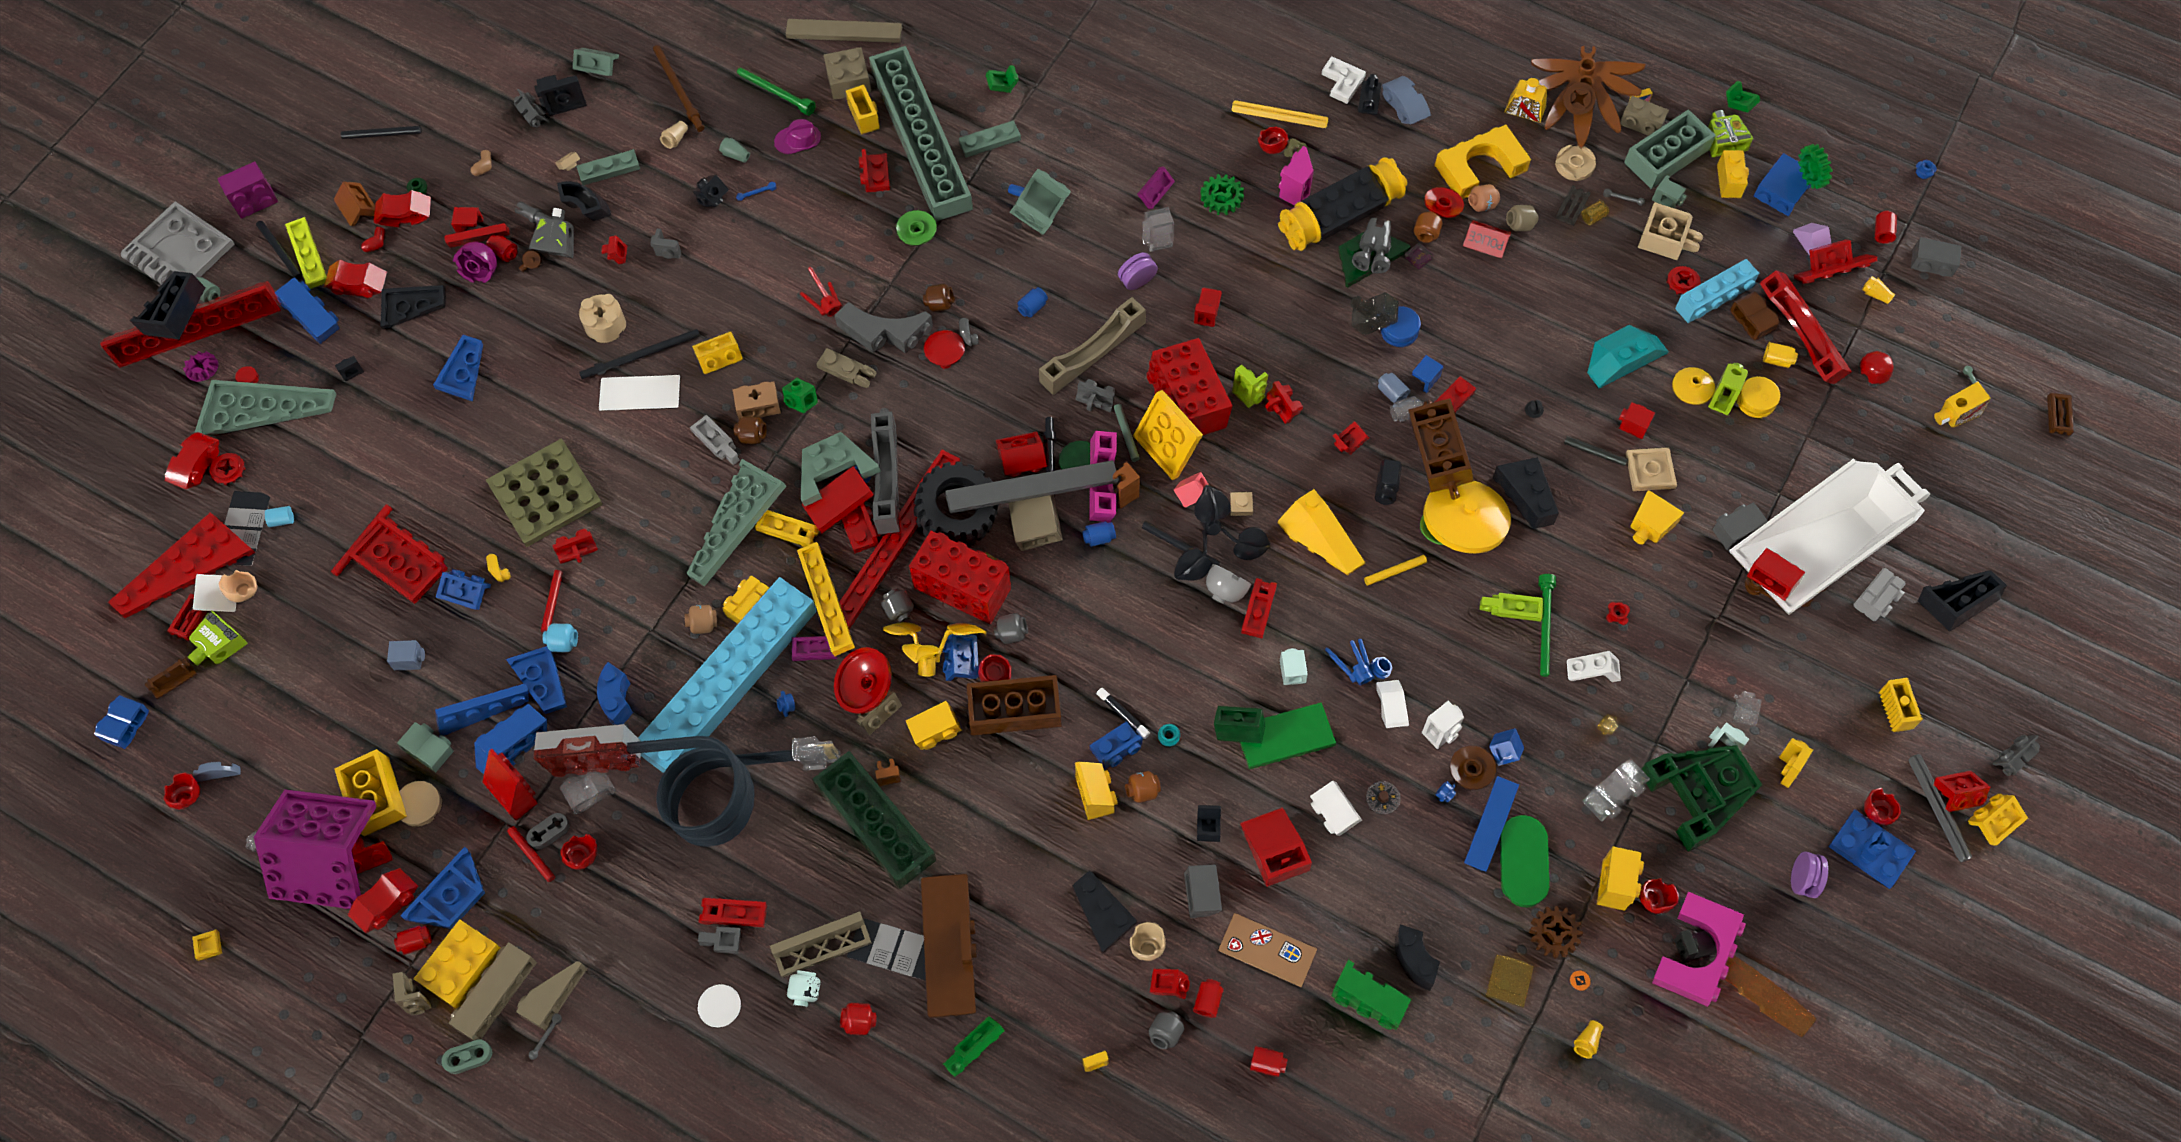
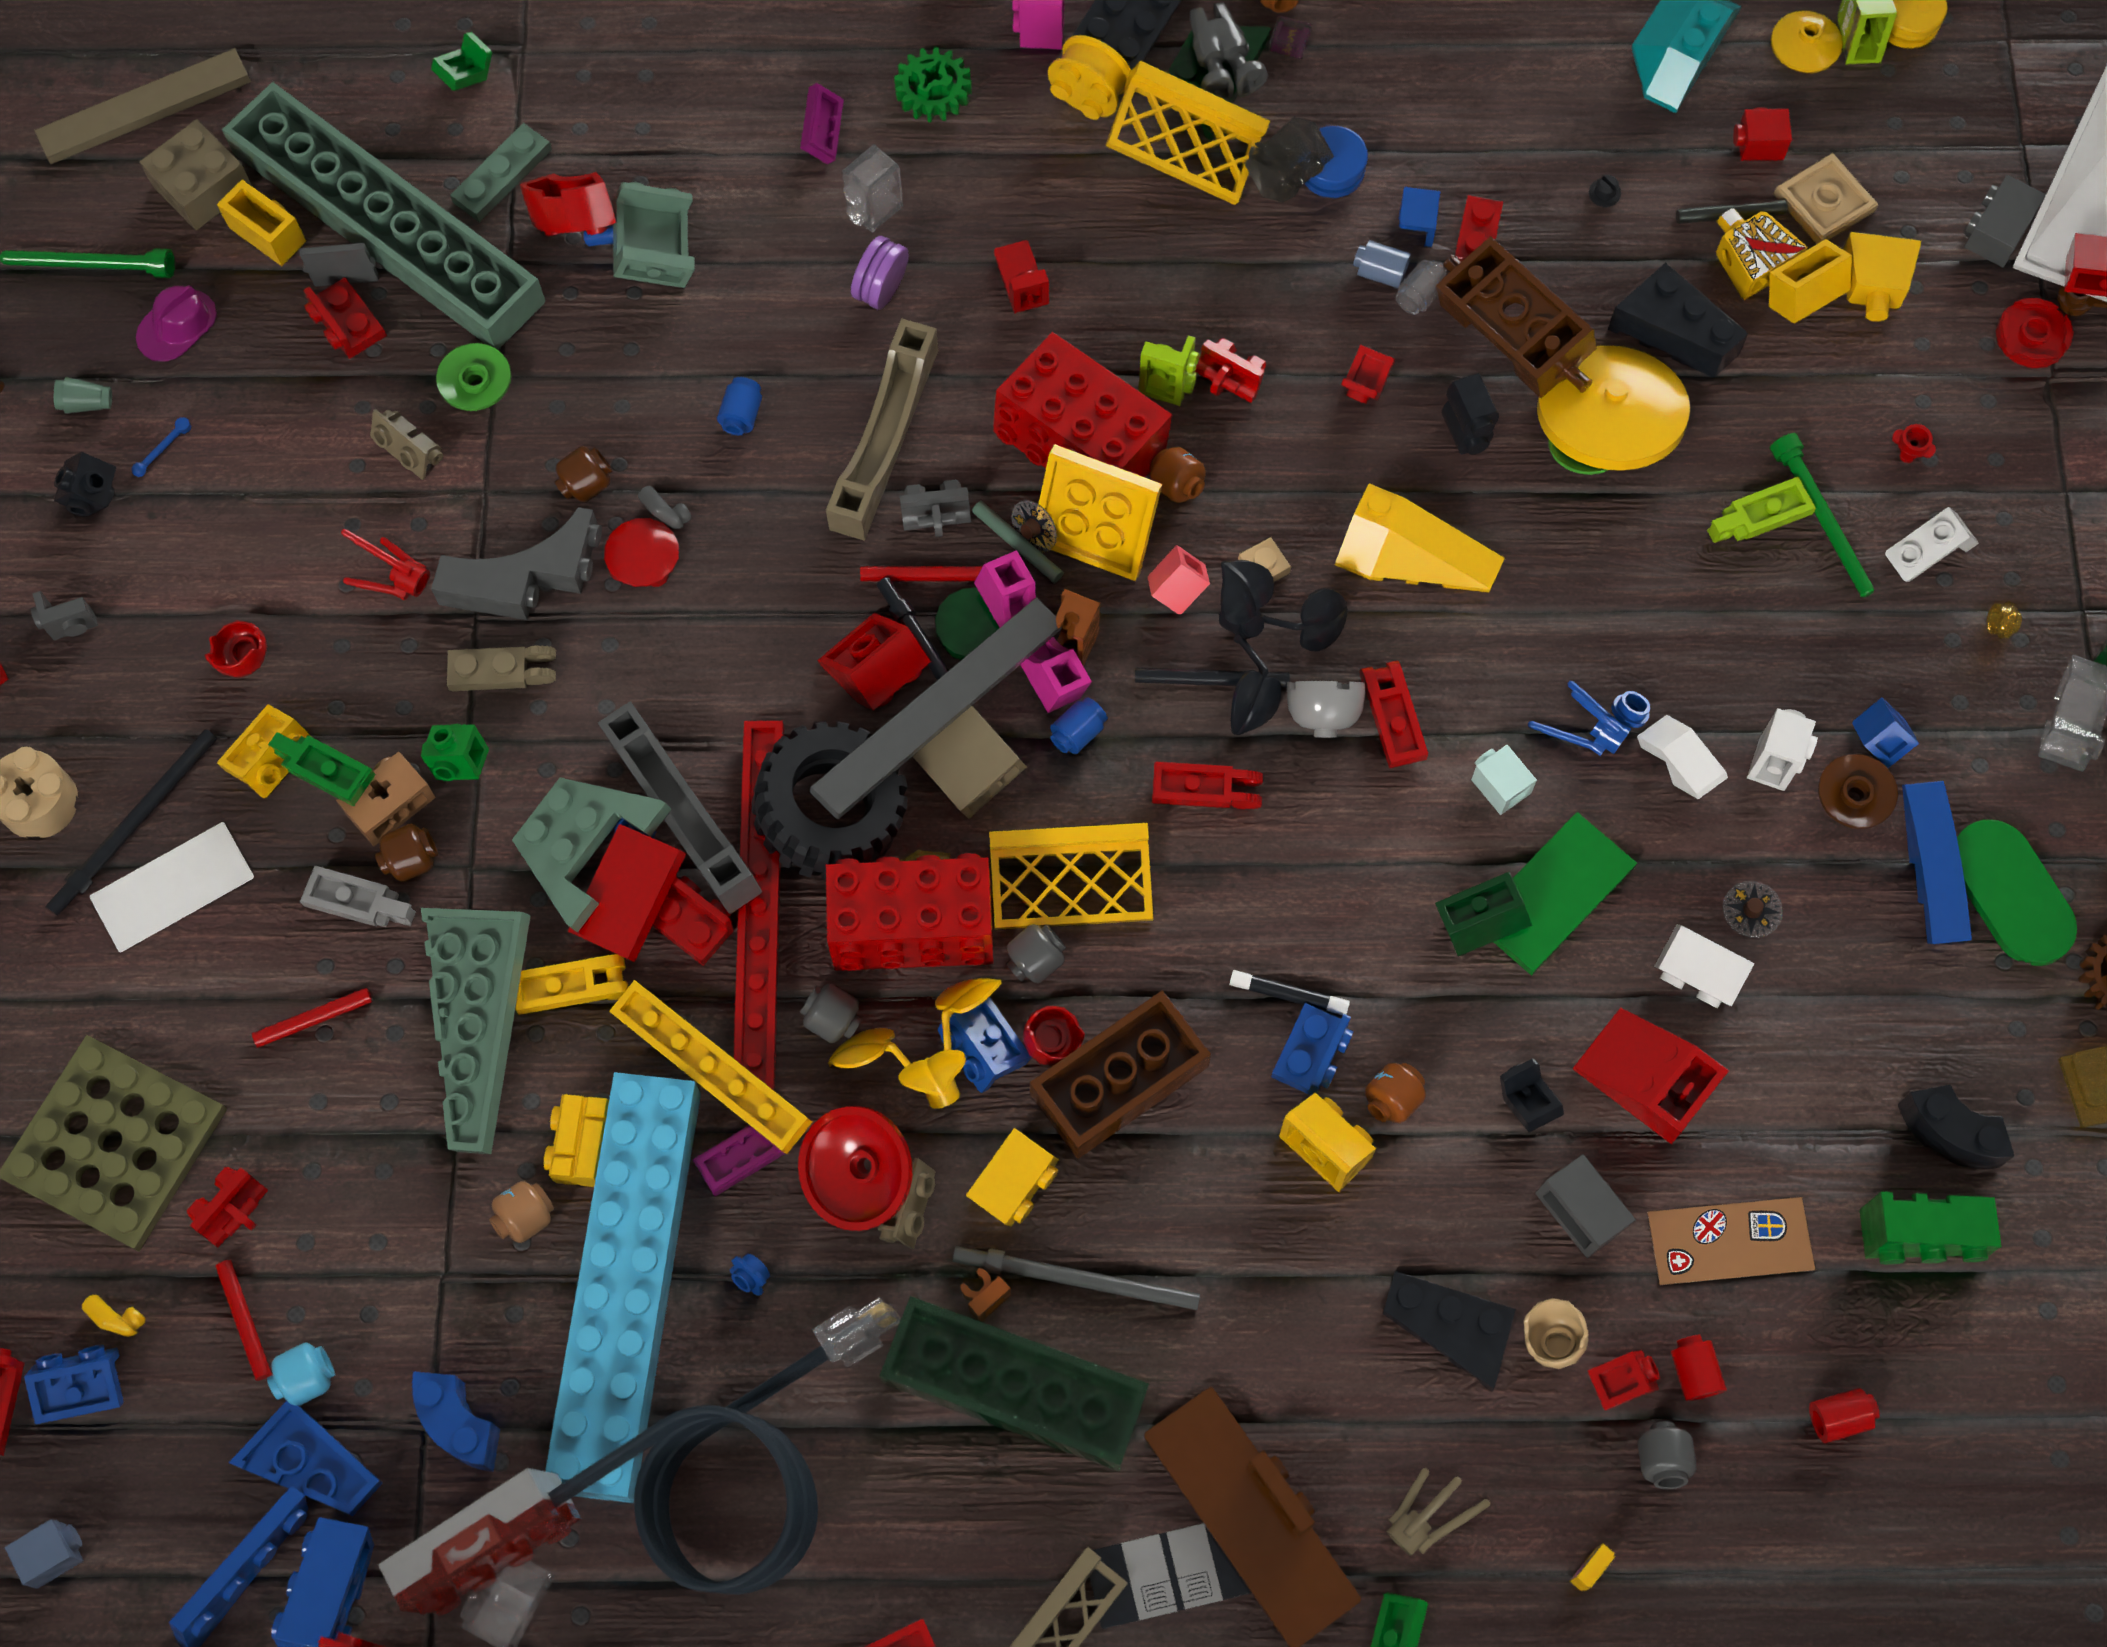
camera: 30 degrees left, 5 degrees up
(666, 483) = (312, 1017): none -> red bar
(732, 299) = (237, 649): none -> red hair
(735, 370) = (323, 767): none -> green hinge
(866, 242) = (394, 434): none -> dark tan hinge
(883, 143) = (332, 263): none -> dark grey piece
(903, 761) = (997, 1262): none -> dark grey bar
(1009, 168) = (568, 204): none -> red brick
(1019, 992) = (1411, 1530): none -> dark tan plant
(1064, 588) = (1077, 842): none -> yellow fence
(1067, 422) = (920, 573): none -> red bar
(1137, 427) = (1034, 525): none -> piece
(1143, 593) = (1204, 785): none -> red hinge
(1169, 728) = (1385, 978): teal plate -> none
(1224, 439) = (1179, 474): none -> dark orange head
(1342, 263) = (1193, 103): none -> yellow fence
(1395, 570) = (1556, 546): yellow bar -> none
(1446, 792) = (1840, 850): blue plate -> none
(1594, 476) = (1754, 249): none -> torso
(1611, 504) = (1810, 281): none -> yellow brick
(1721, 591) = (2034, 333): none -> red tile

